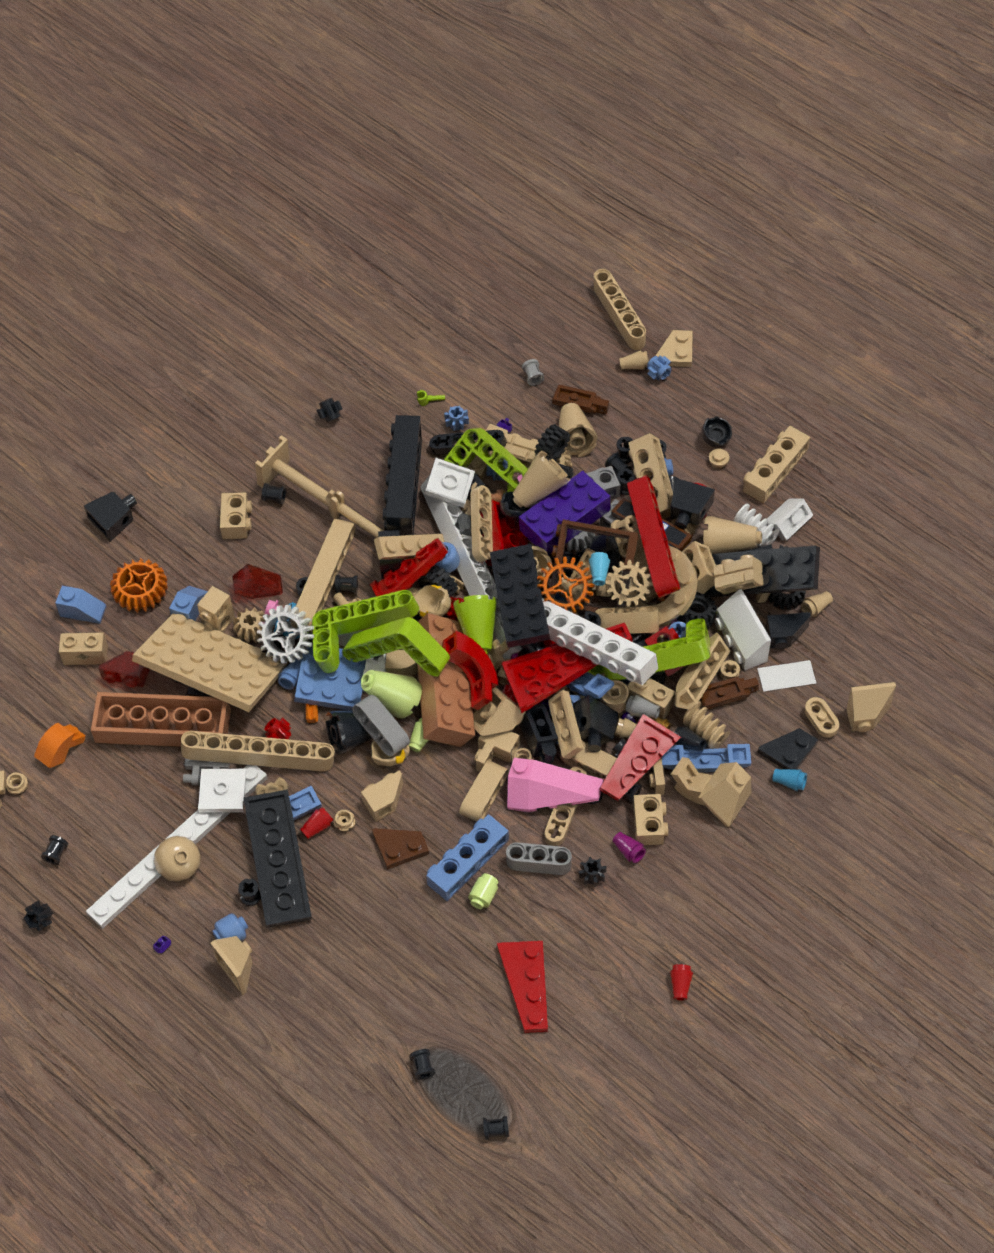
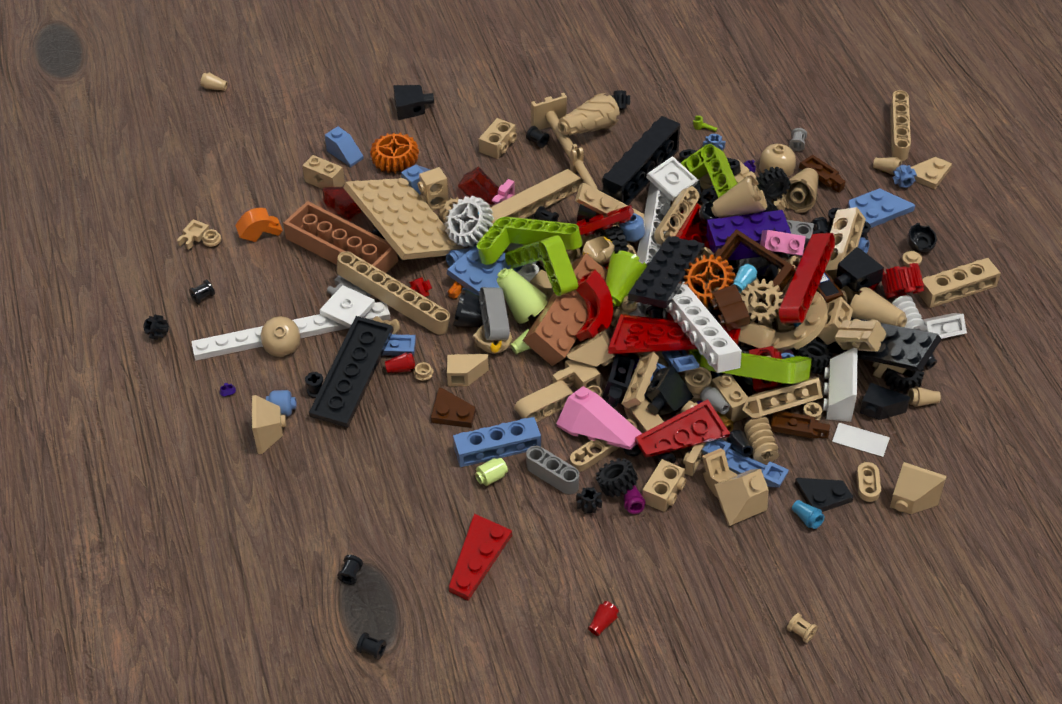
camera: 30 degrees right, 10 degrees down
(286, 577) = (504, 192): none -> bright pink plate
(320, 442) = (593, 115): none -> tan cone
(499, 487) = (705, 192): none -> black bush
(529, 407) = (778, 156): none -> tan cylinder
(596, 828) = (616, 477): none -> black tyre
(607, 607) = (730, 307): none -> reddish brown brick
(608, 509) = (783, 242): none -> bright pink brick
(653, 414) = (881, 206): none -> medium blue wing
(732, 490) = (902, 280): none -> red brick
(853, 893) = (802, 627): none -> tan bush

